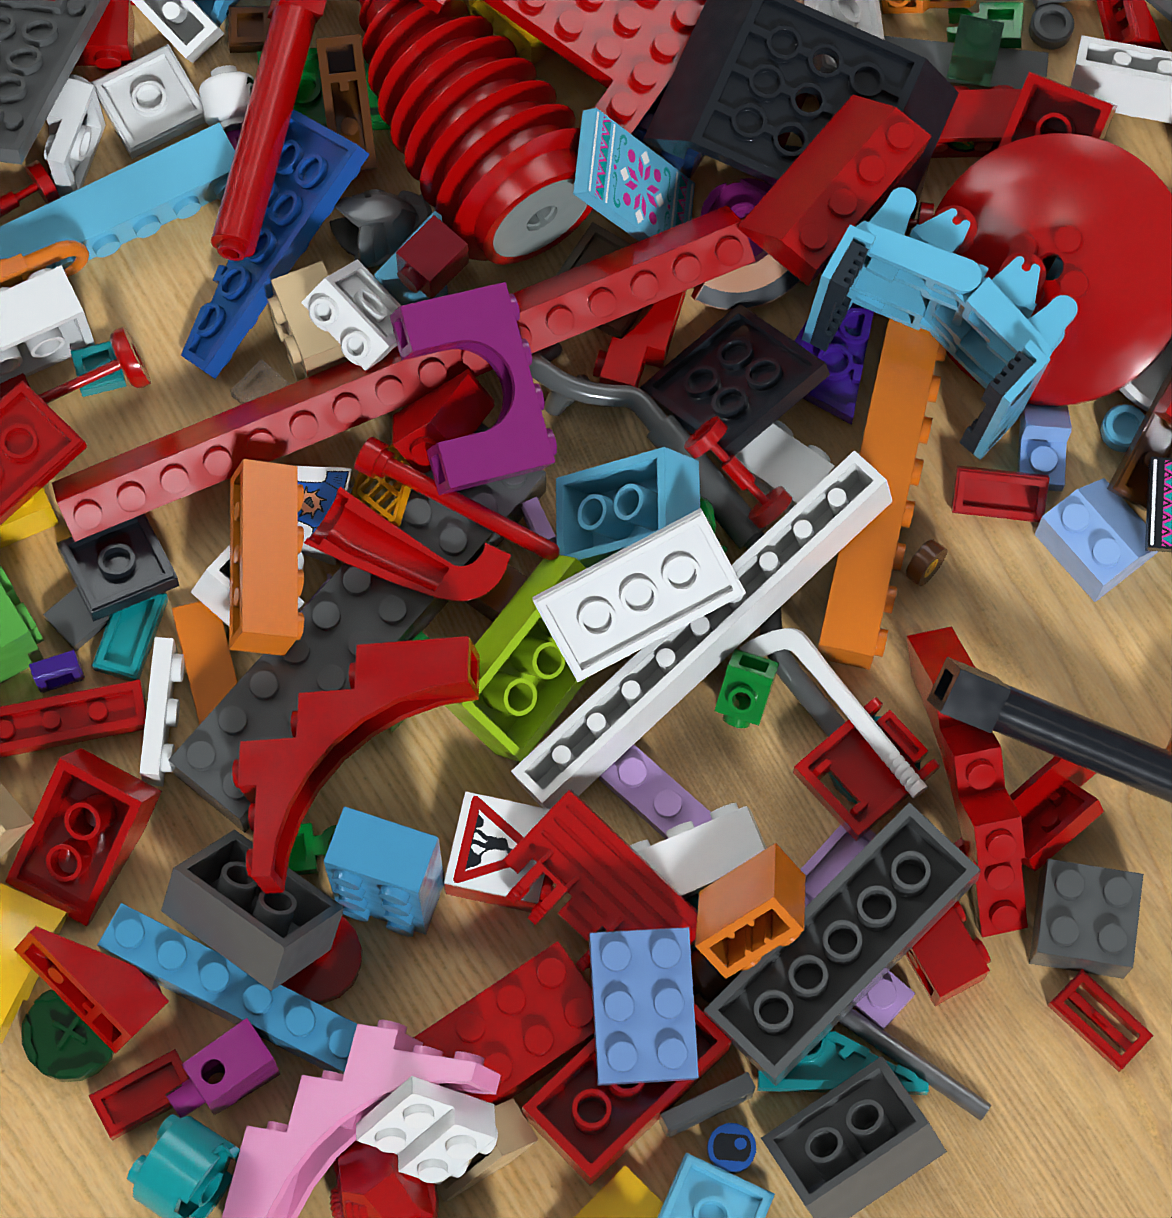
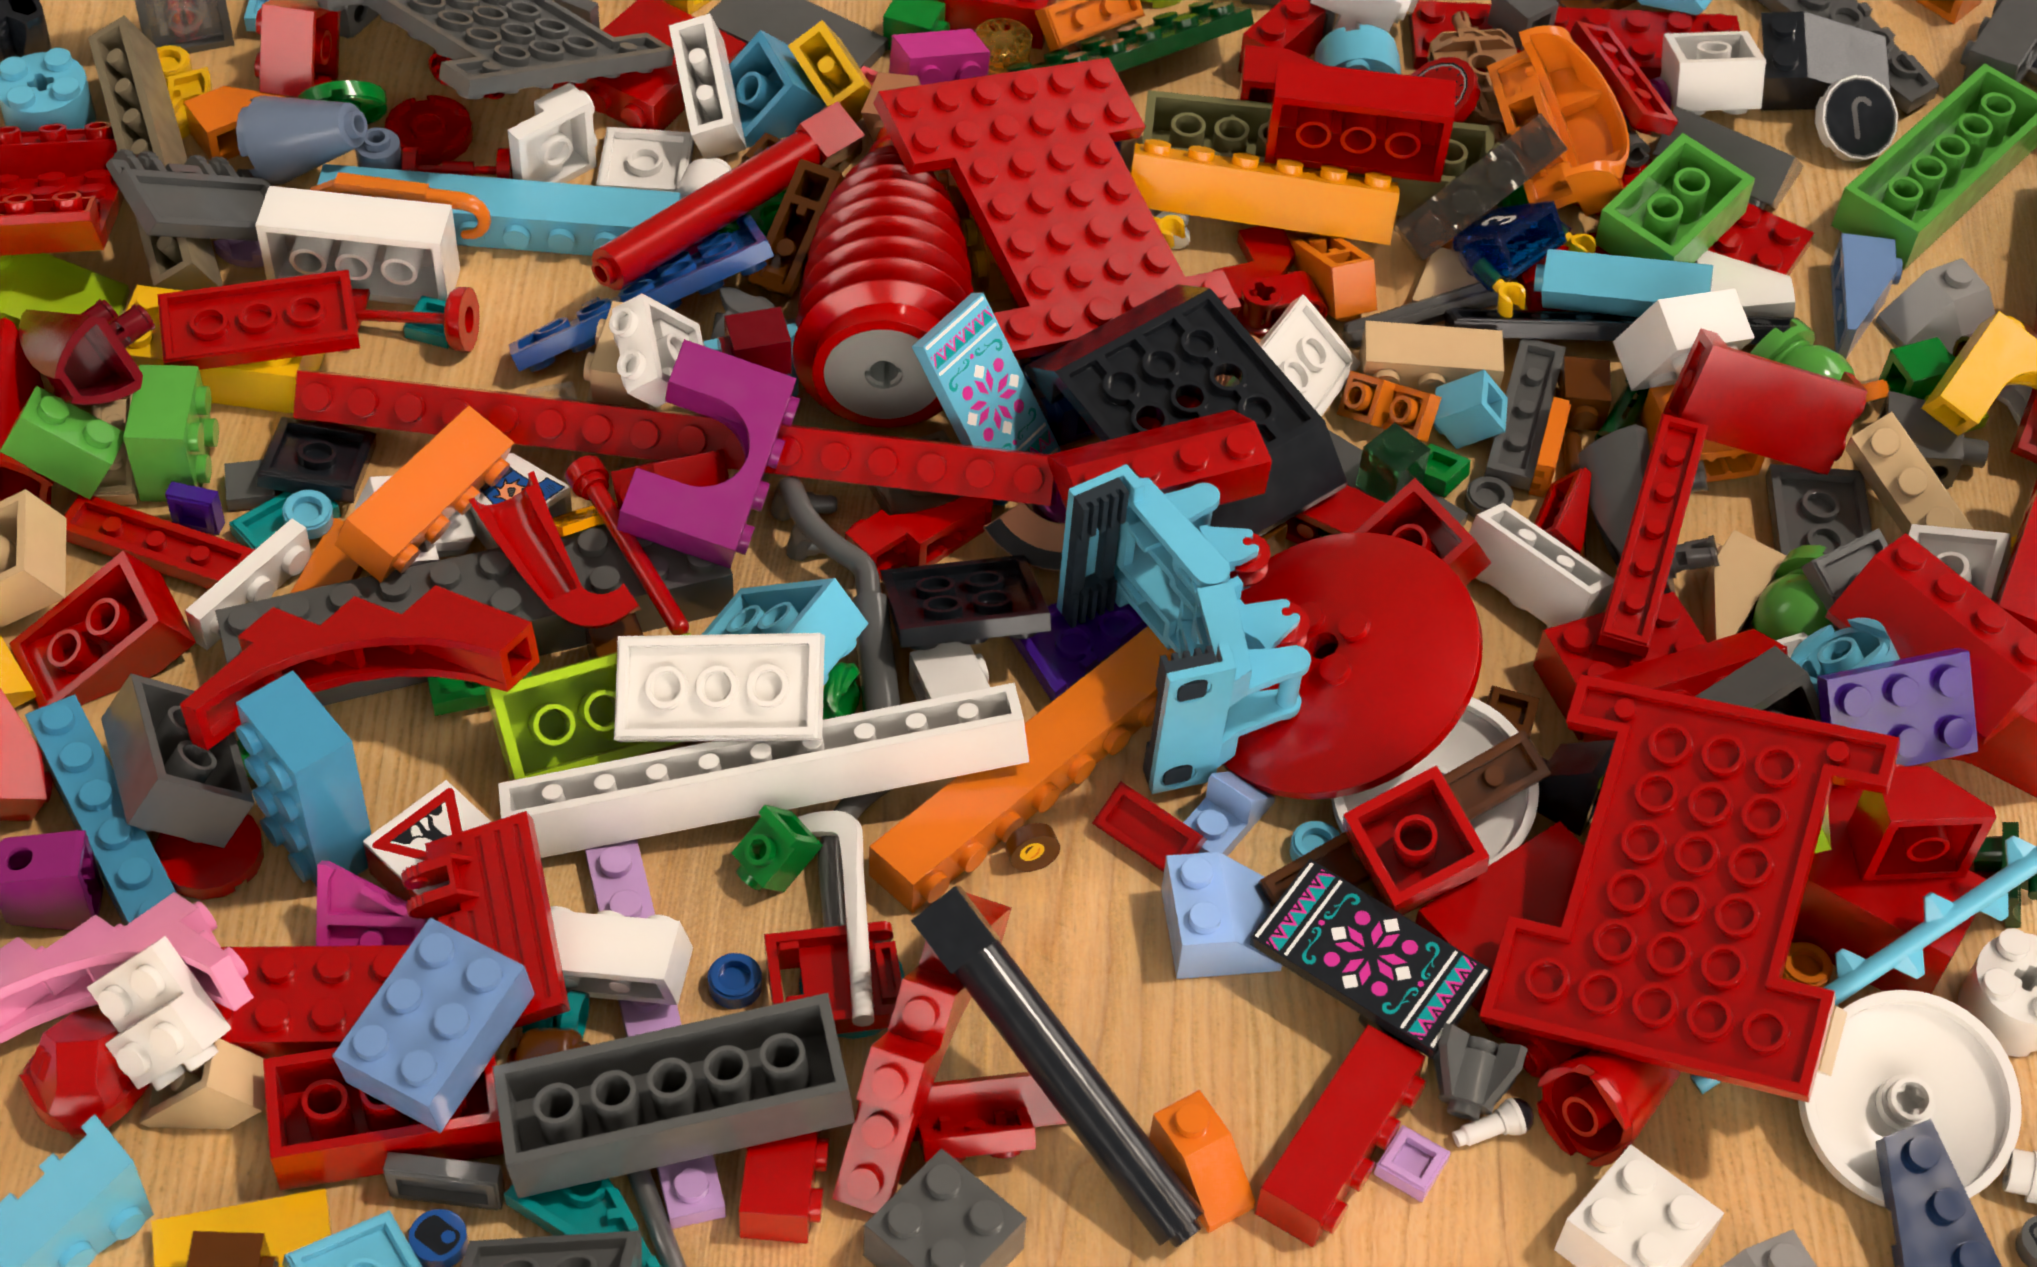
camera: 30 degrees right, 20 degrees down
(154, 618) = (311, 510): none -> medium azure tile
(491, 943) = (359, 912): none -> dark pink wing
(536, 519) = (699, 612): lavender tile -> none
(751, 911) = (603, 1005): orange brick -> none
(769, 505) = (888, 609): red wheel -> none
(786, 810) = (735, 981): none -> blue tile

